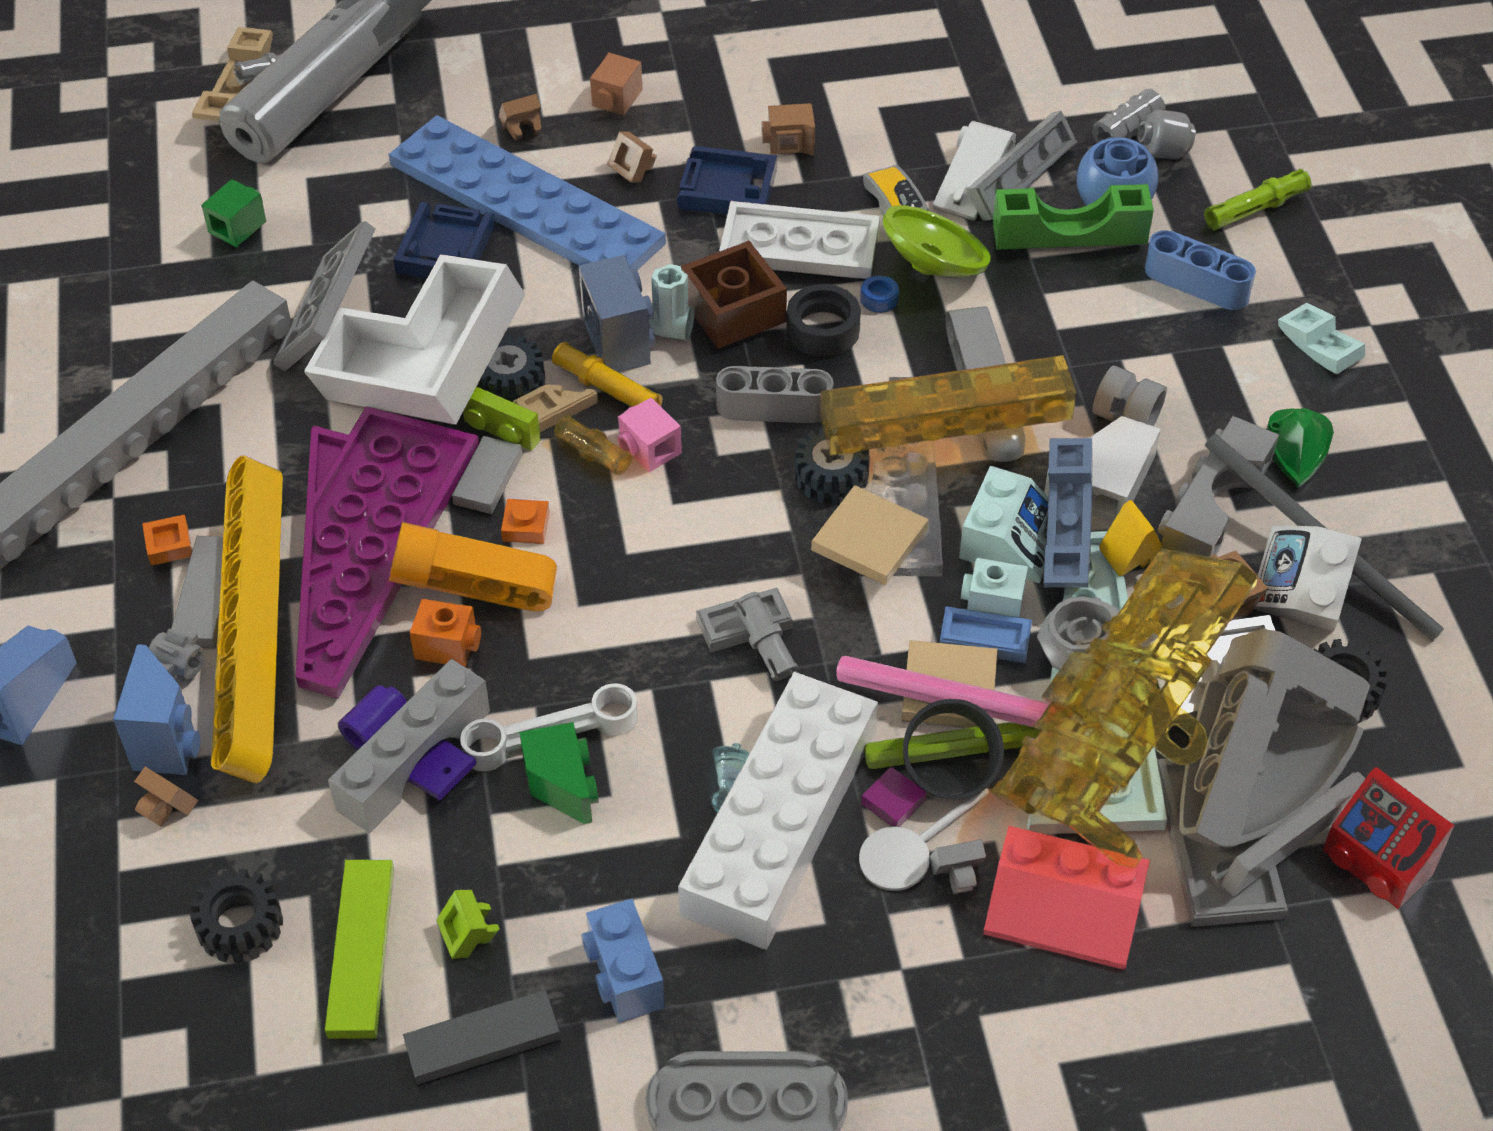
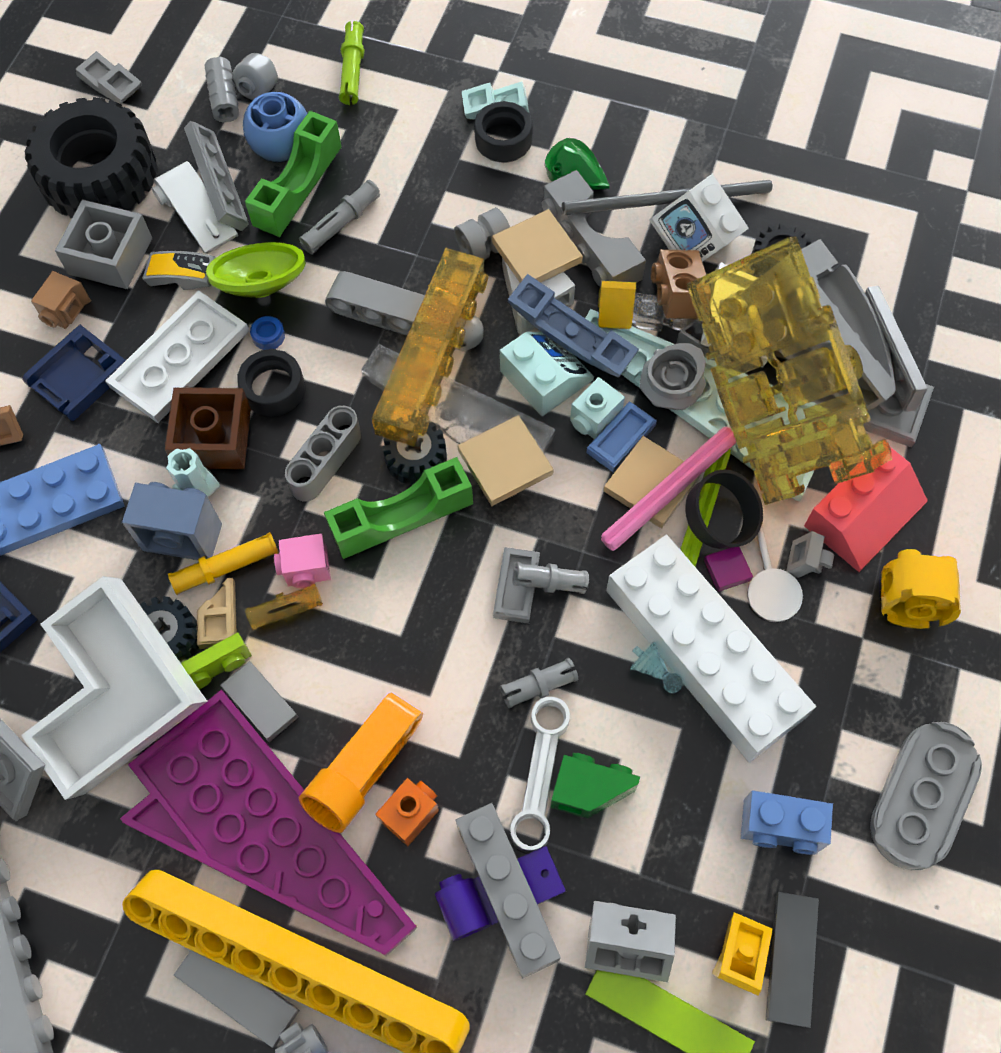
camera: 60 degrees left, 15 degrees up
(167, 540) = (162, 1003): orange plate -> none
(414, 866) = (631, 941): none -> light grey brick
(454, 973) = (744, 954): none -> yellow slope
(464, 924) = (695, 926): lime tile -> none
(525, 521) = (325, 695): orange plate -> none
(645, 681) = (539, 683): none -> light grey pin
(715, 458) = (366, 524): none -> bright green arch
(872, 125) = (104, 244): none -> light grey brick
(956, 67) = (86, 129): none -> black tyre
(985, 979) = (920, 590): none -> yellow brick
(1057, 280) = (349, 209): none -> light grey pin
(1069, 37) = (107, 79): none -> light grey slope
(1141, 441) = (537, 248): none -> tan tile
(1200, 270) = (392, 130): medium blue beam -> none
(1278, 380) = (503, 113): none -> black tyre
(1388, 838) = (926, 299): red slope -> none

